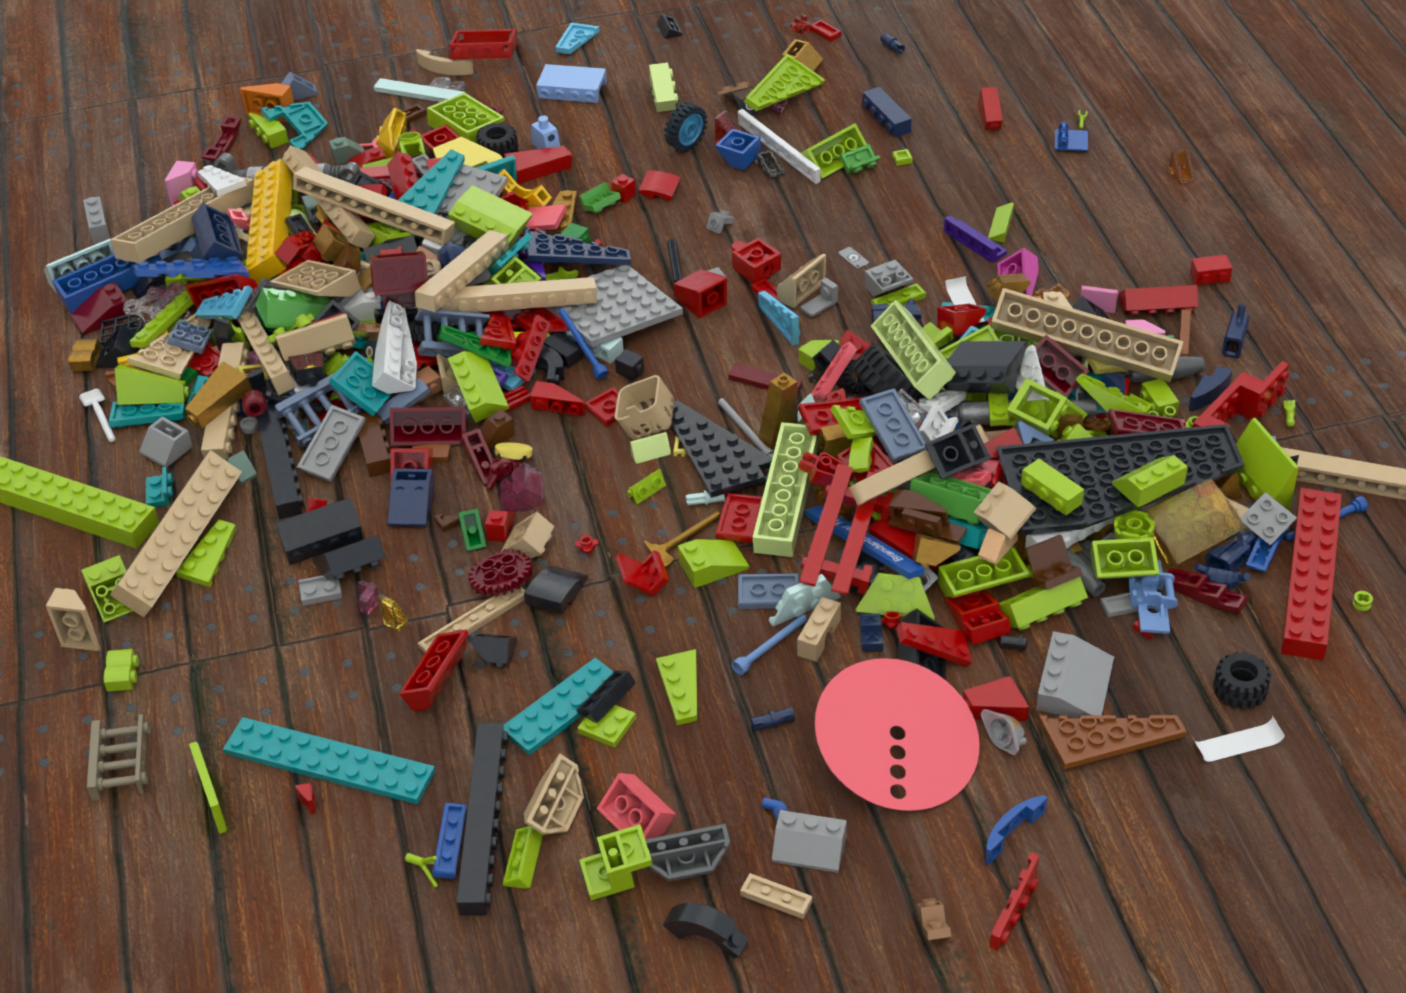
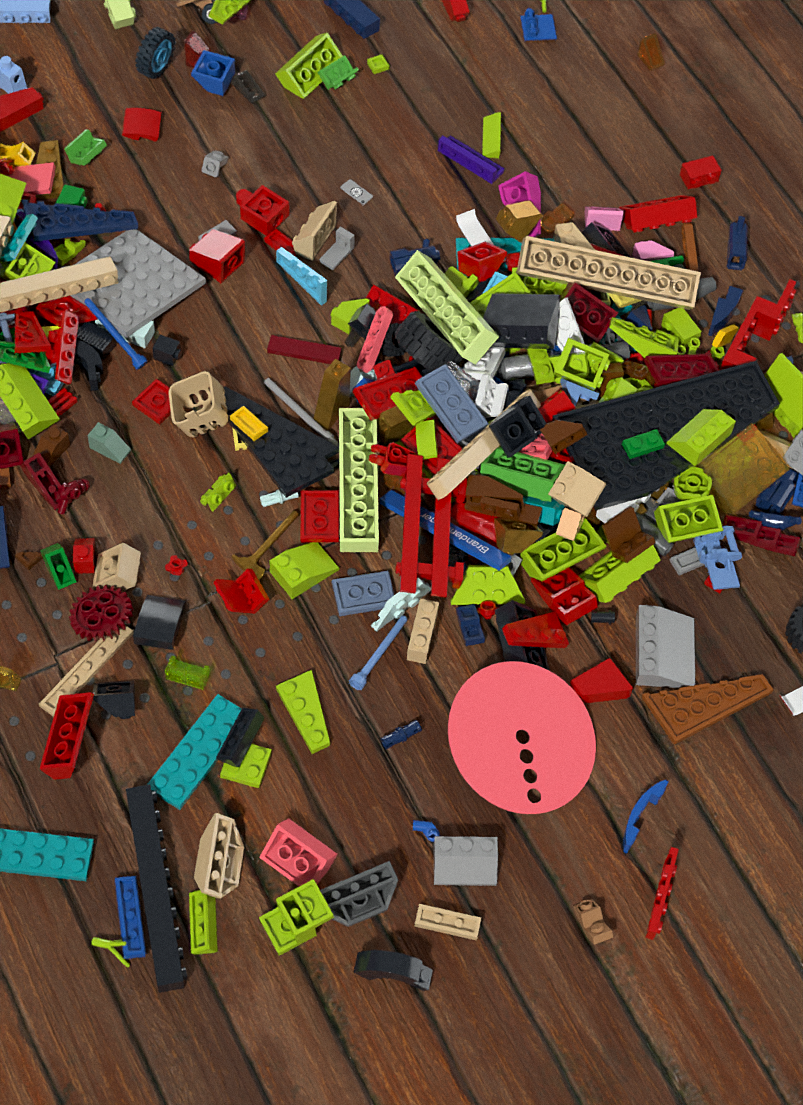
camera: 20 degrees left, 15 degrees up
(513, 450) = (76, 468): light yellow tile -> none
(521, 489) = (96, 513): clear pink slope -> none
(550, 433) = (108, 443): none -> sand green slope
(555, 399) = (100, 400): red slope -> none
(570, 637) = (187, 673): none -> clear neon green hinge
(625, 187) = (107, 131): red brick -> none
(650, 448) = (211, 446): yellowish green slope -> none
(674, 260) = (181, 218): black axle -> none
(690, 430) = (248, 423): none -> yellow tile
(779, 146) = (253, 63): white tile -> none
(886, 278) = (398, 218): light grey slope -> none
(902, 296) = (413, 236): lime tile -> none
(1001, 461) = (562, 434): none -> reddish brown slope
(1004, 731) = (615, 716): light grey hat -> none
(1052, 486) = (615, 457): lime brick -> none
(1089, 479) = (643, 444): none -> green plate
(1199, 406) = (725, 336): none -> yellow tile

